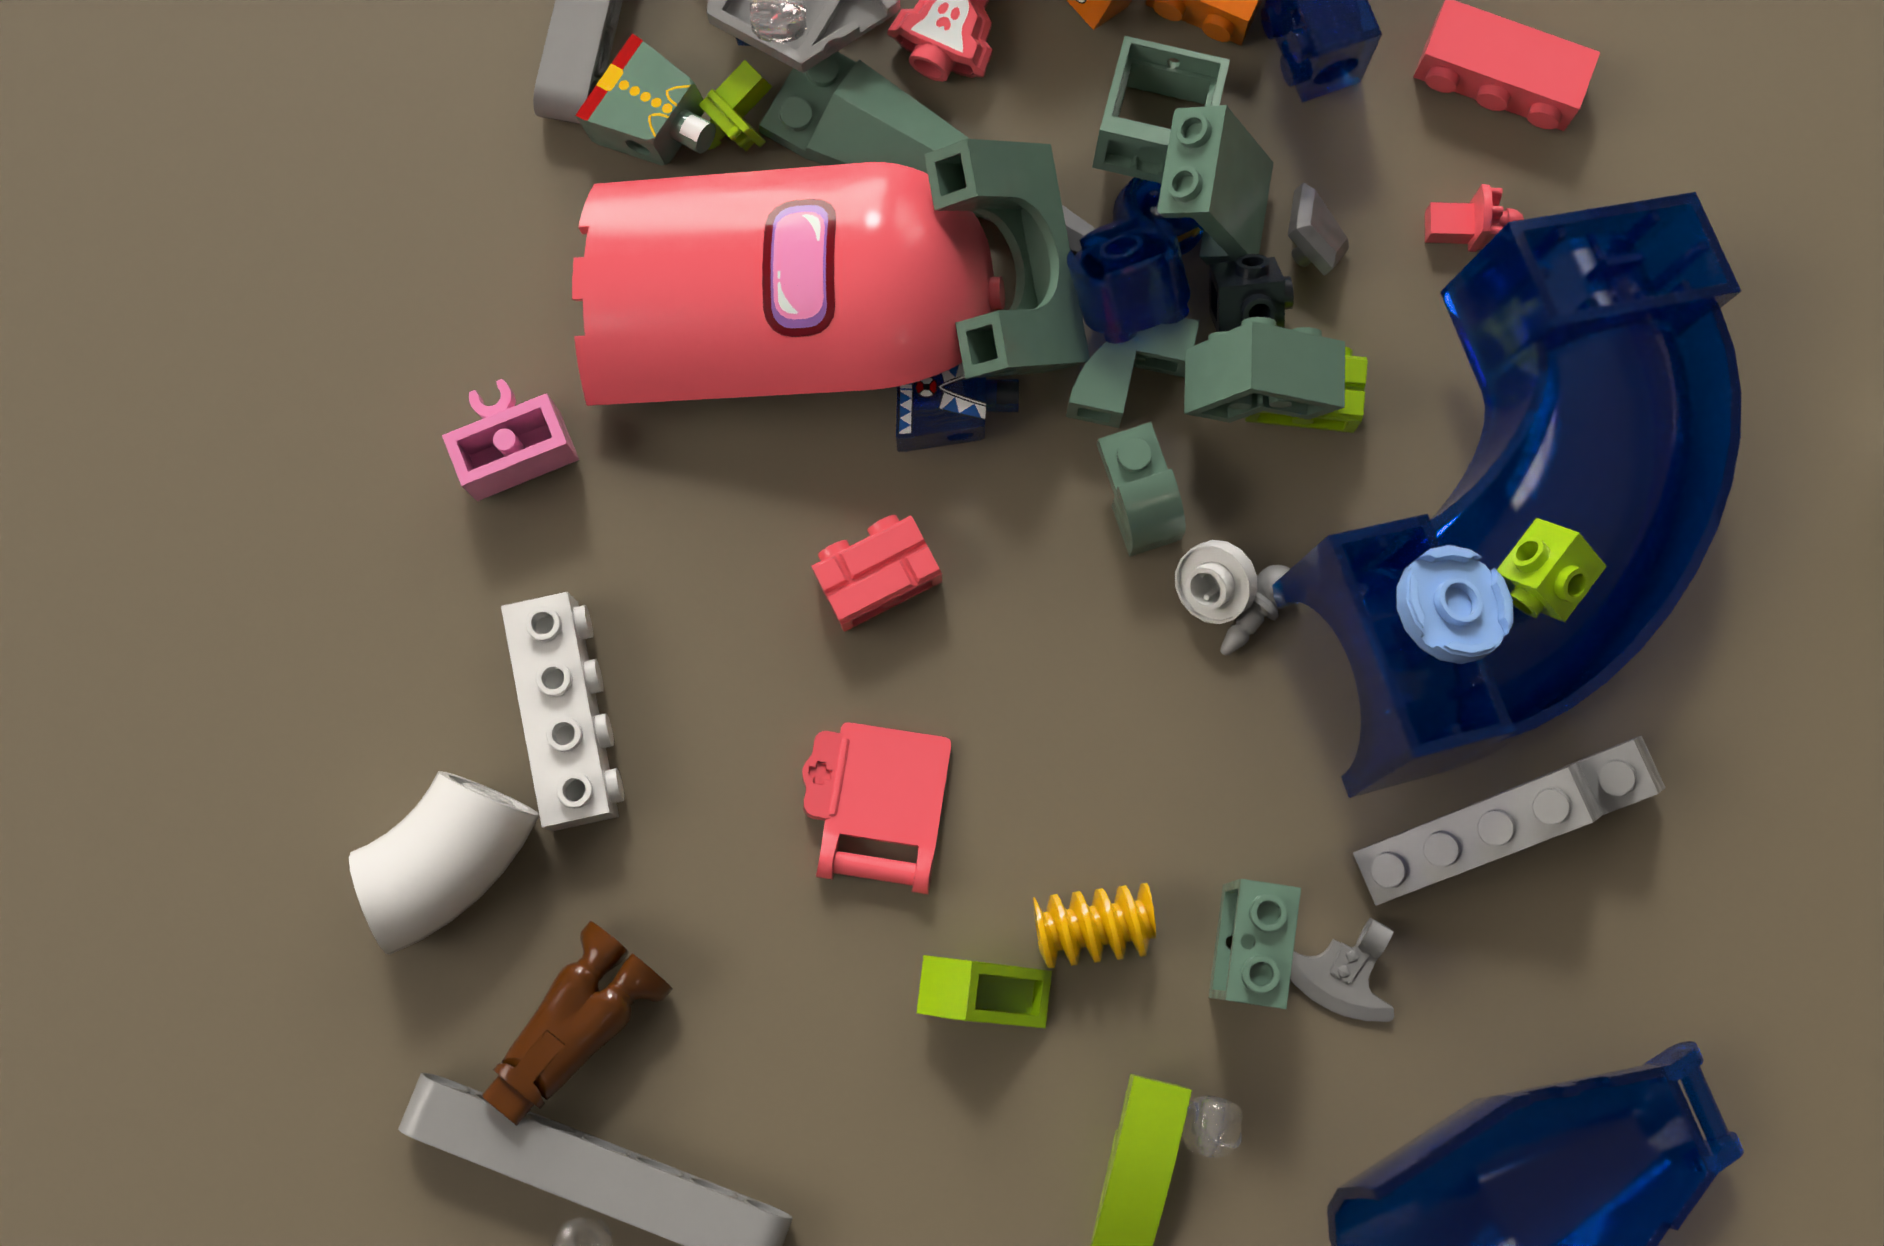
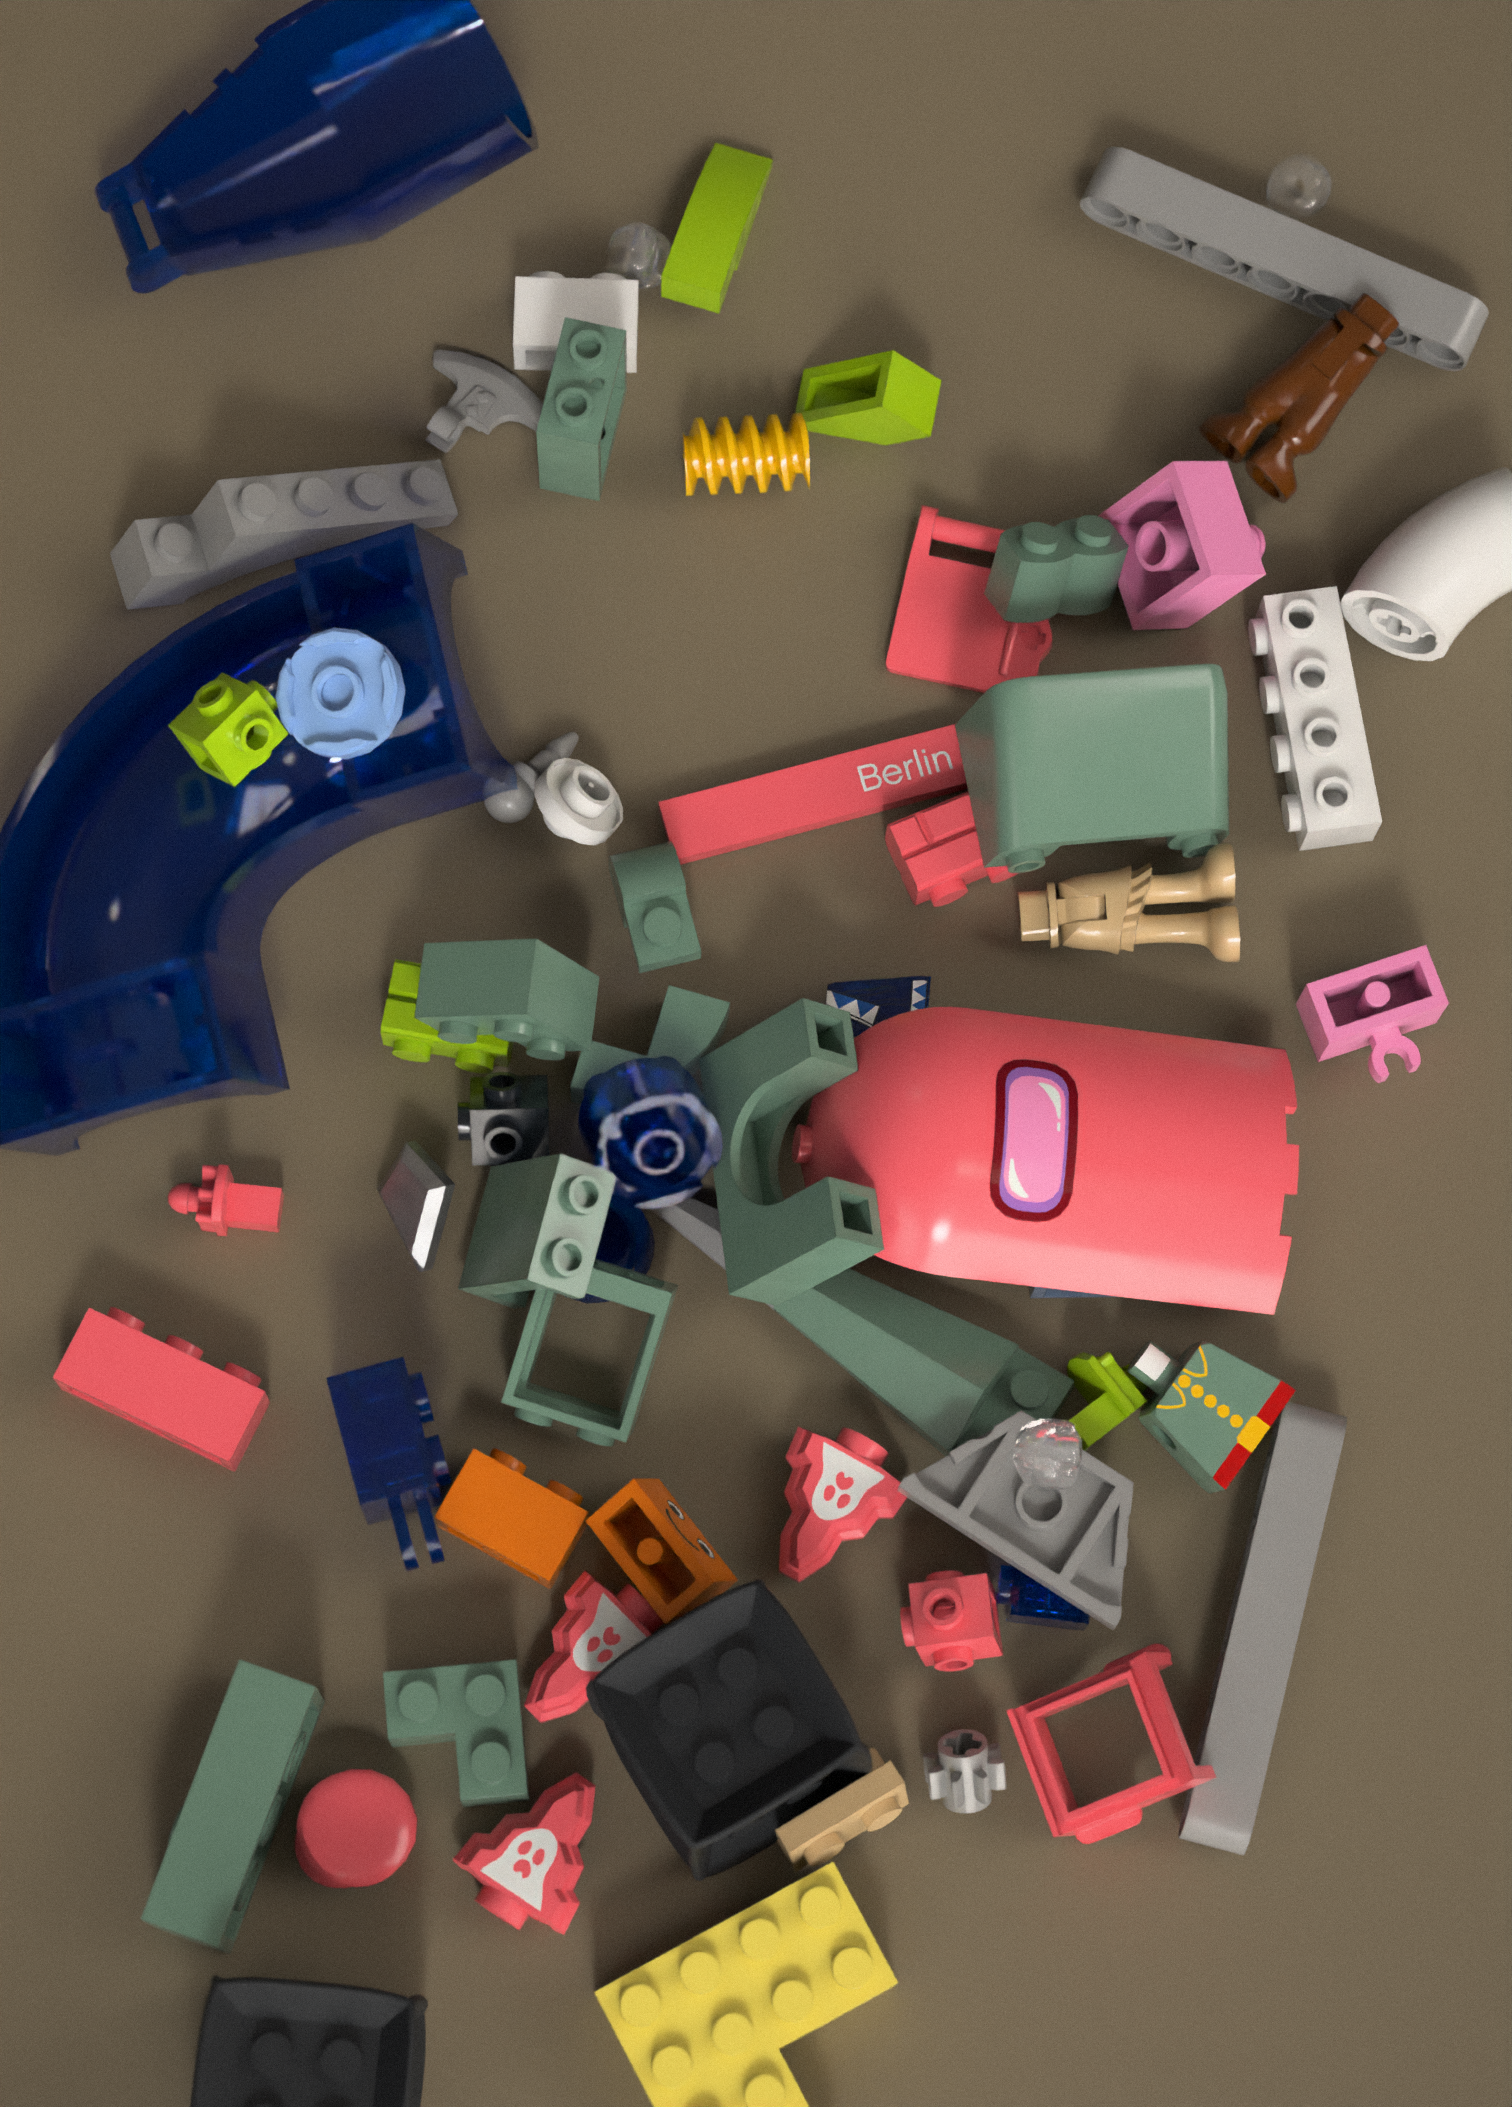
camera: 175 degrees right, 5 degrees down
(683, 852) = (1185, 545): none -> bright pink brick
(741, 522) = (1107, 909): none -> tan piece
(754, 626) = (1098, 762): none -> sand green windscreen
(800, 823) = (1056, 569): none -> sand green brick
(924, 643) = (814, 794): none -> coral tile
(1265, 1052) = (549, 297): none -> white brick

